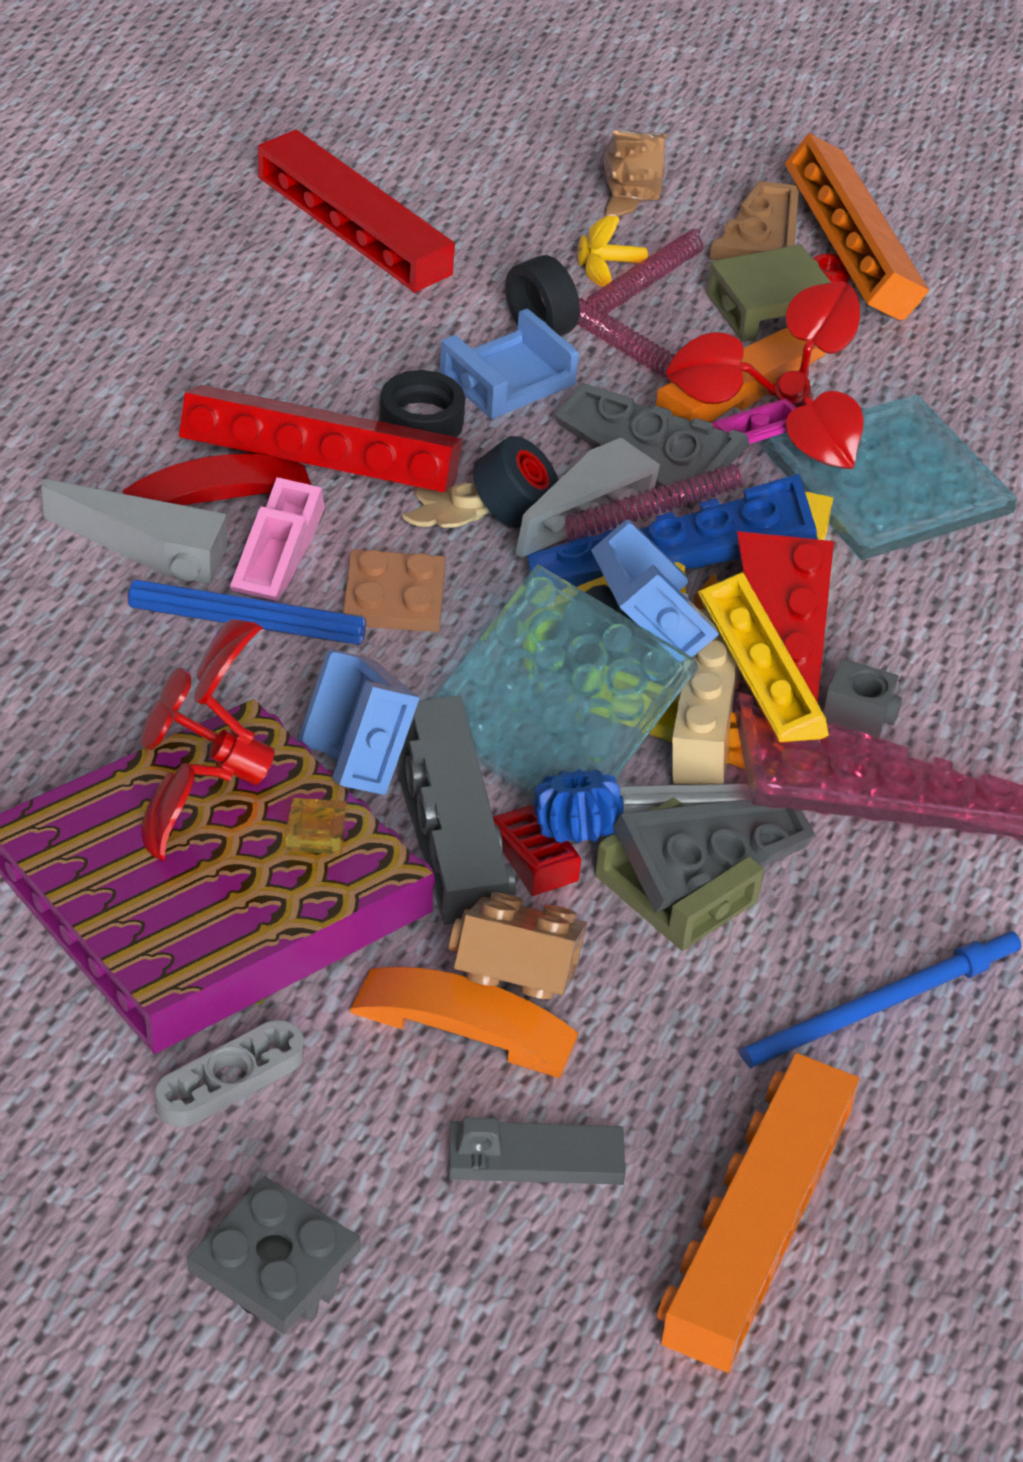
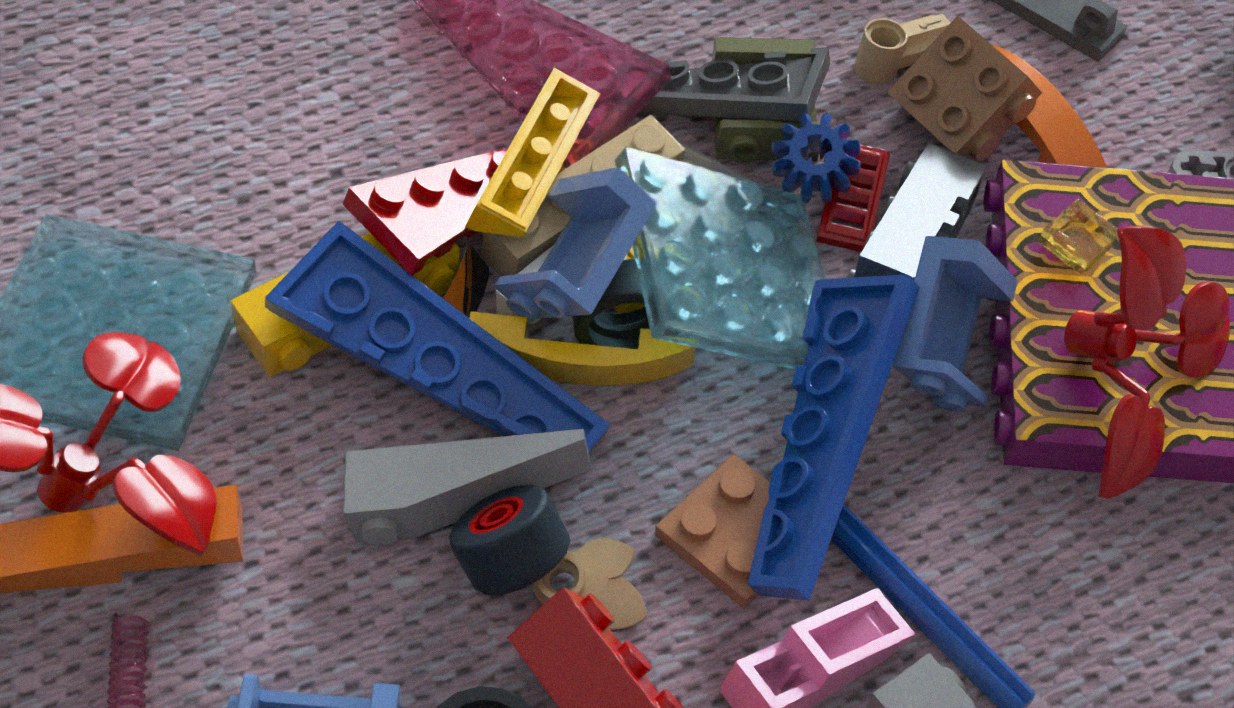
camera: 140 degrees left, 10 degrees up
(387, 620) = (851, 347): none -> blue wing
(623, 997) = (893, 46): none -> tan piece
(665, 490) = (448, 407): clear pink piece -> none
(673, 442) = (295, 511): dark grey wing -> none
(758, 422) = (148, 436): dark pink slope -> none
(862, 698) = (449, 129): dark grey brick -> none

